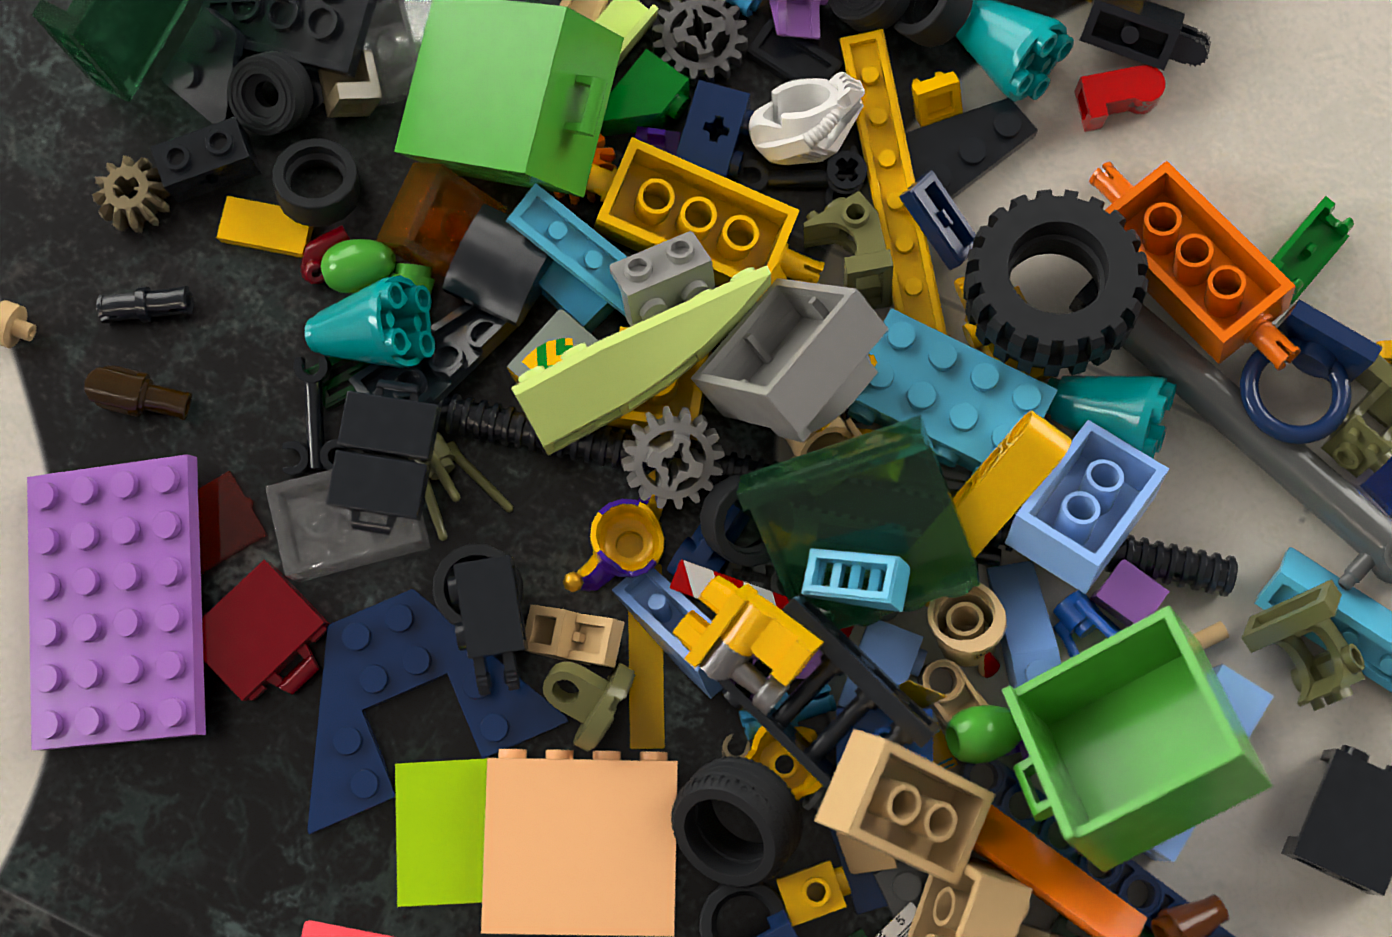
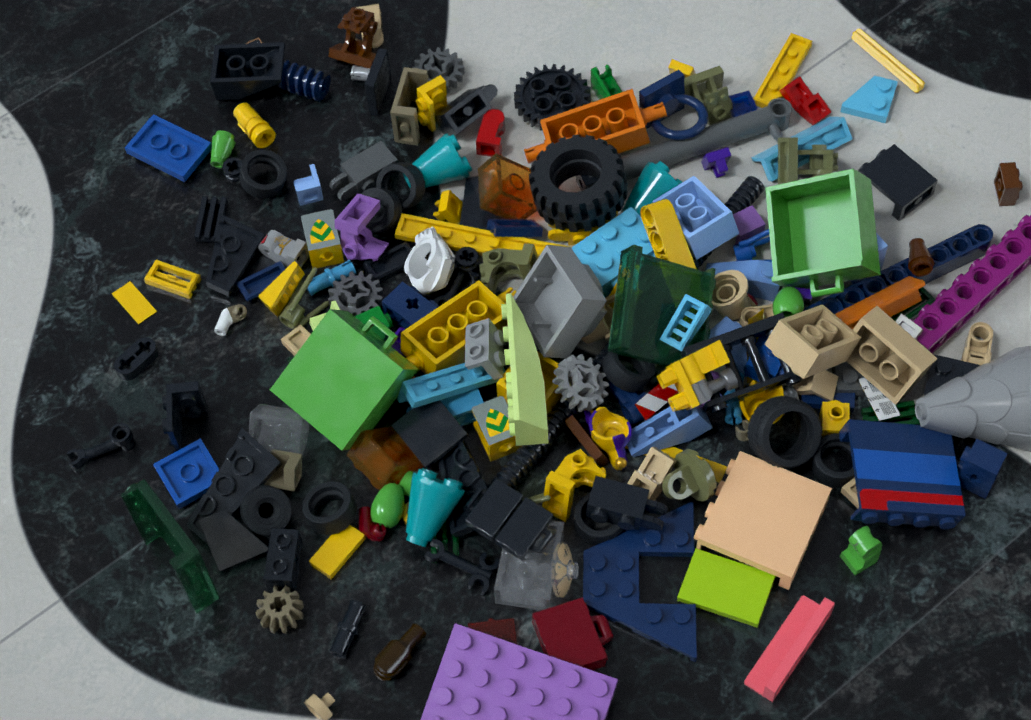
camera: 70 degrees left, 20 degrees down
(352, 572) = (563, 570): none -> dish
(490, 505) = (561, 484): none -> yellow tile
(610, 487) = (586, 440): none -> reddish brown tile
(1001, 163) = (505, 188): none -> clear orange brick
(1245, 492) = (717, 161): none -> dark purple tile
(1275, 137) = (550, 93): none -> black gear

